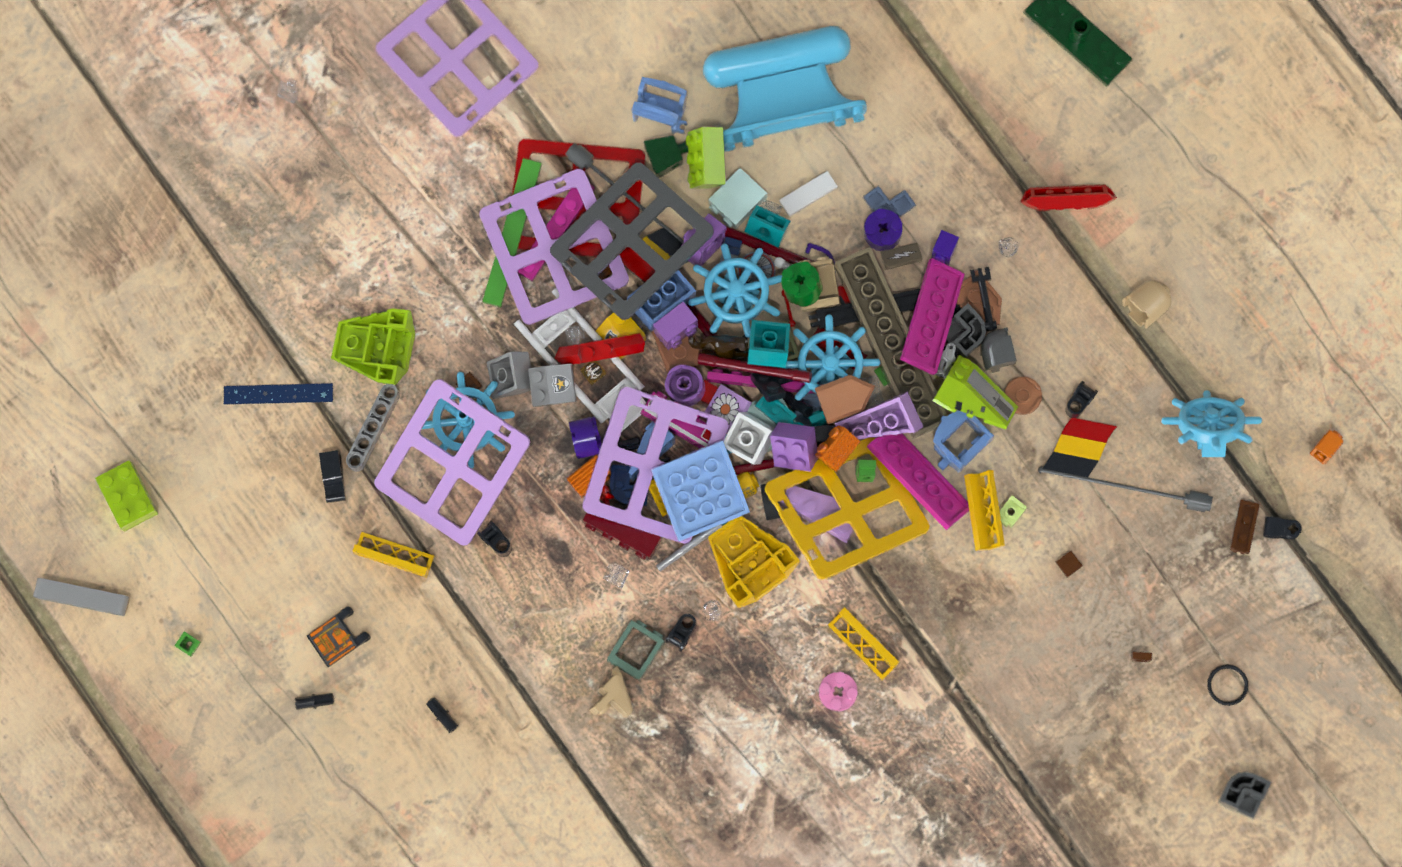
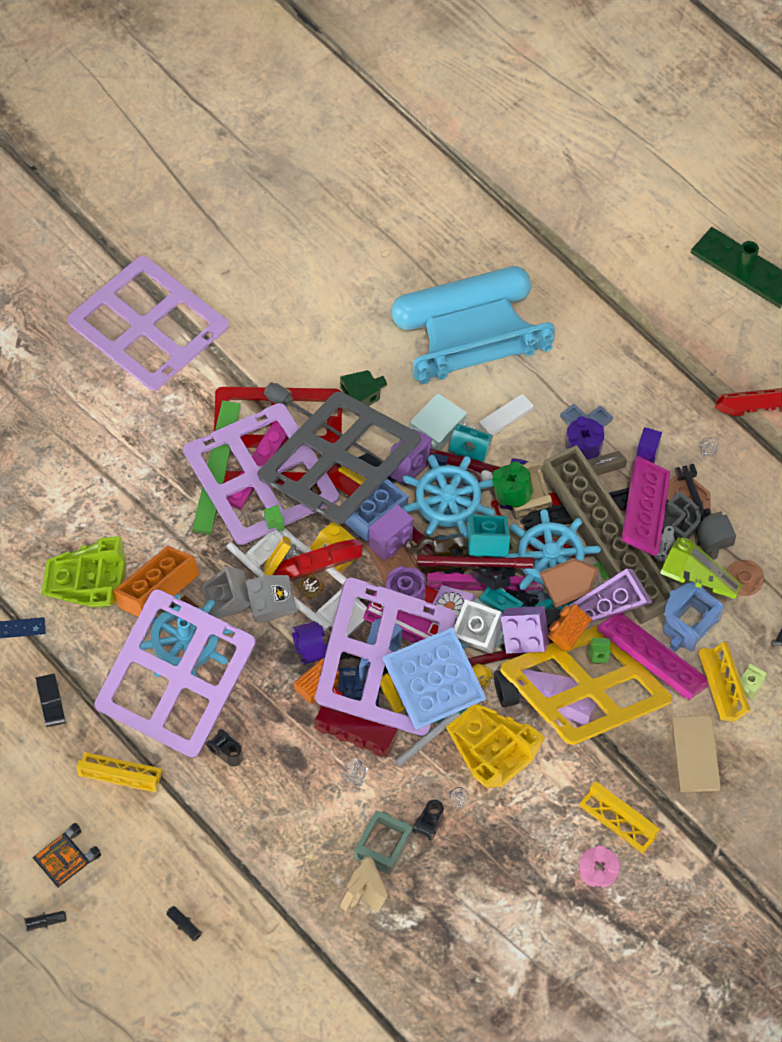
camera: 15 degrees left, 20 degrees down
(372, 418) = (86, 660): light grey beam -> none
(442, 359) = (166, 572): none -> orange brick
(561, 302) = (274, 518): none -> bright green piece
(562, 341) = (277, 555): none -> yellow tile
(658, 107) = (353, 349): medium blue animal -> none
(706, 158) = (403, 384): lime brick -> none
(947, 582) = (695, 754): none -> tan tile

